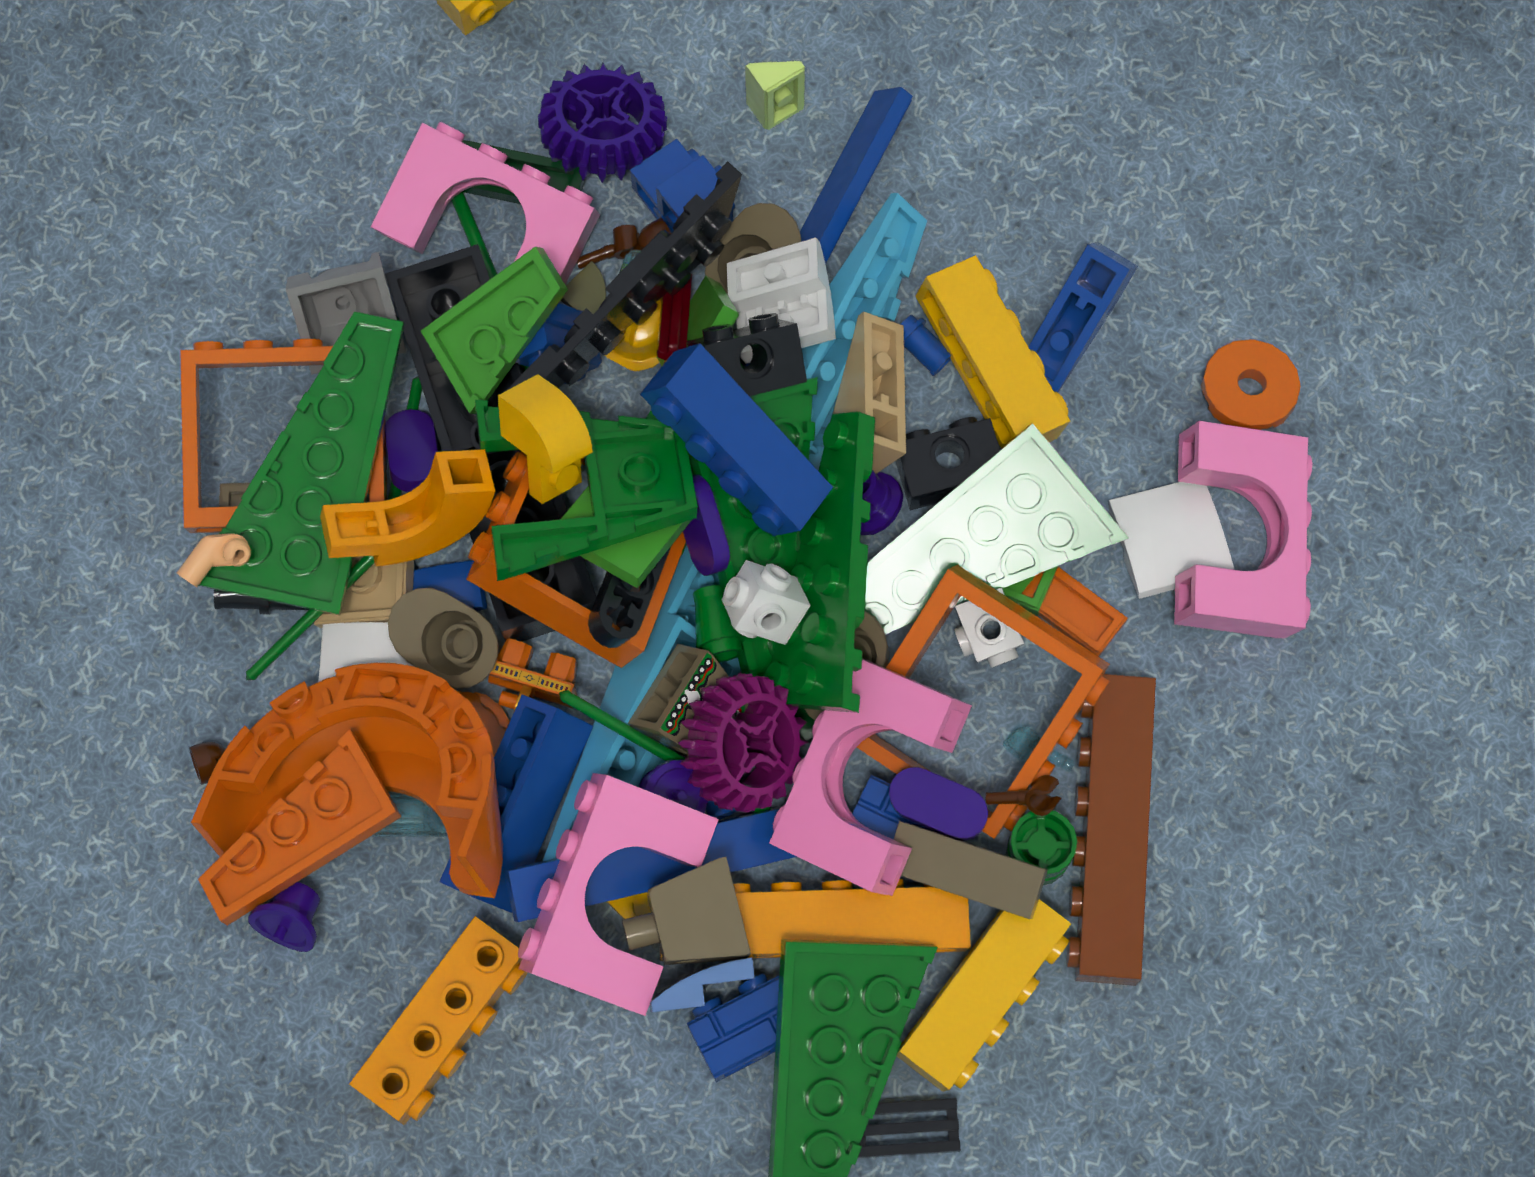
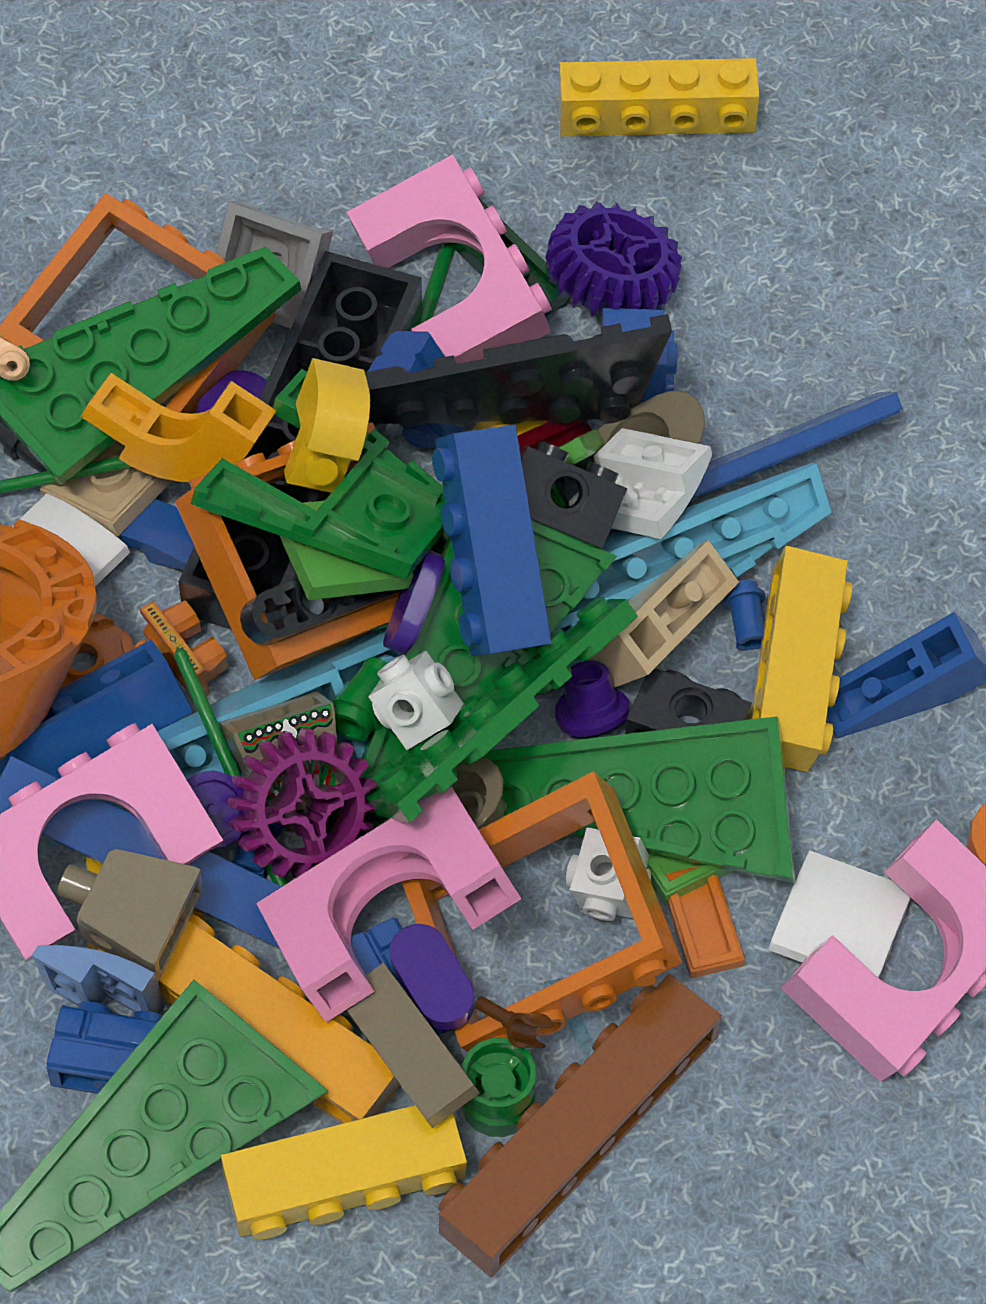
camera: 35 degrees right, 15 degrees down
(443, 637) = (131, 560): dark tan piece -> none
(494, 325) = (382, 328): bright green wing -> none
(775, 90) = (783, 327): yellowish green slope -> none
(950, 1125) = (207, 1288): black tile -> none

